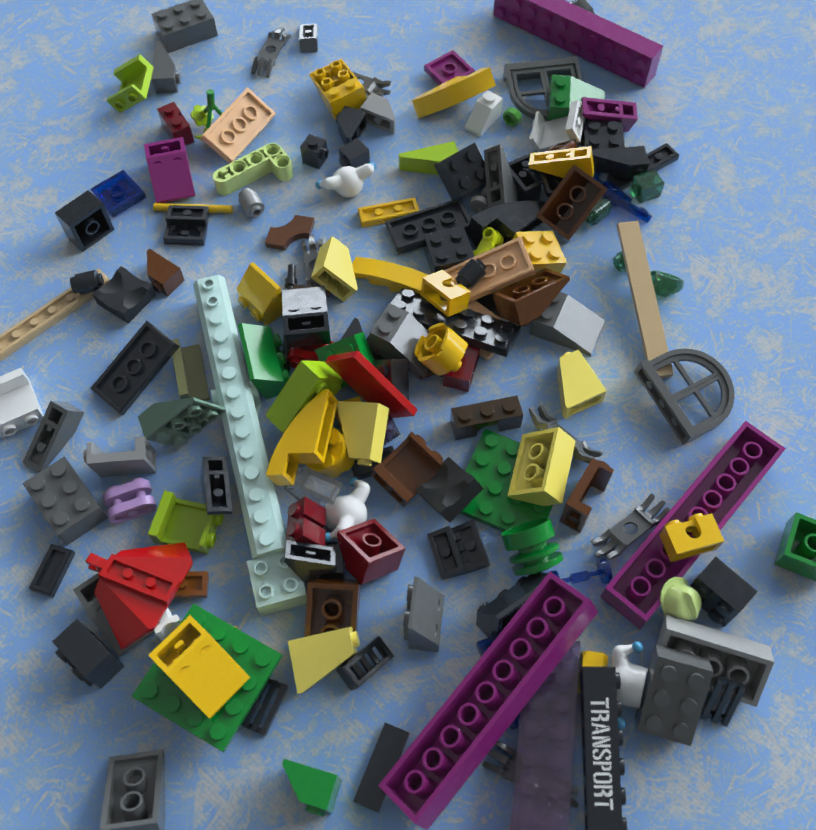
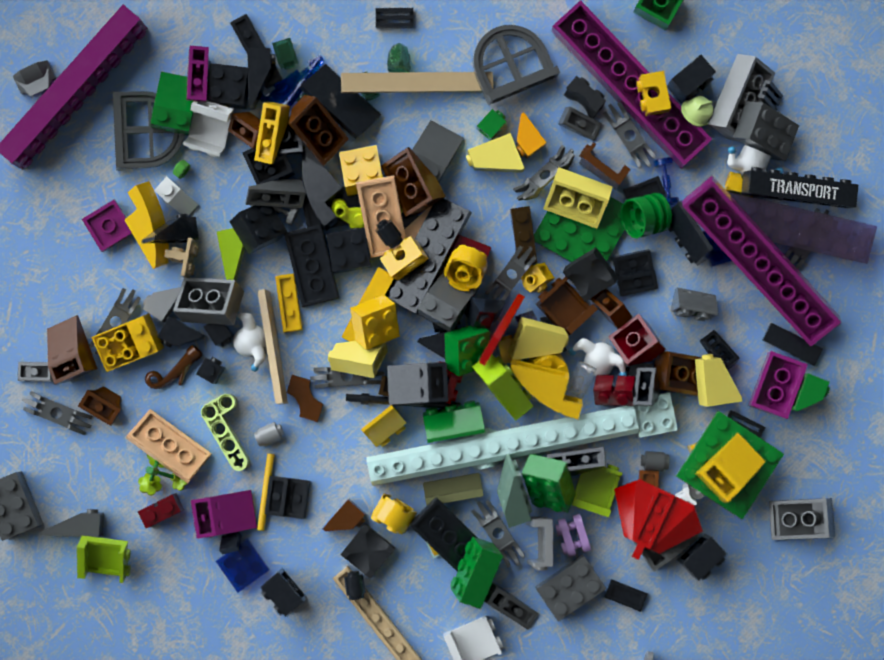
camera: 80 degrees left, 25 degrees up
(89, 389) = (476, 572): none -> green brick
(123, 429) = (504, 543): none -> dark grey piece
(140, 179) = (230, 543): none -> black tile
(163, 309) = (394, 514): none -> yellow brick
(188, 452) = (548, 483): none -> green brick
(218, 589) = (655, 461): none -> dark grey brick
(279, 77) = (102, 404): none -> reddish brown slope
(322, 48) = (68, 351): none -> reddish brown slope
(322, 740) = (777, 385): none -> magenta slope
(333, 140) = (179, 370): none -> reddish brown plant
(340, 196) = (272, 347): none -> tan tile
(372, 273) = (375, 322): none -> yellow brick
(382, 136) = (208, 301): none -> dark grey brick
(411, 521) = (611, 308): none -> reddish brown slope
(424, 120) = (185, 257): none -> tan bracket
(439, 433) = (537, 278): none -> yellow brick
(450, 110) = (174, 231): none -> black slope
(451, 403) = (516, 265): none -> dark grey piece
(571, 561) = (644, 188): none -> black tile
(600, 239) = (347, 109): none -> black tile
(604, 414) = (528, 138): none -> light orange slope
(613, 376) = (492, 124): none -> green brick
(633, 473) = (579, 123): none -> dark grey slope
(669, 467) = (581, 92): none -> black brick
(717, 278) = (394, 17): none -> black tile

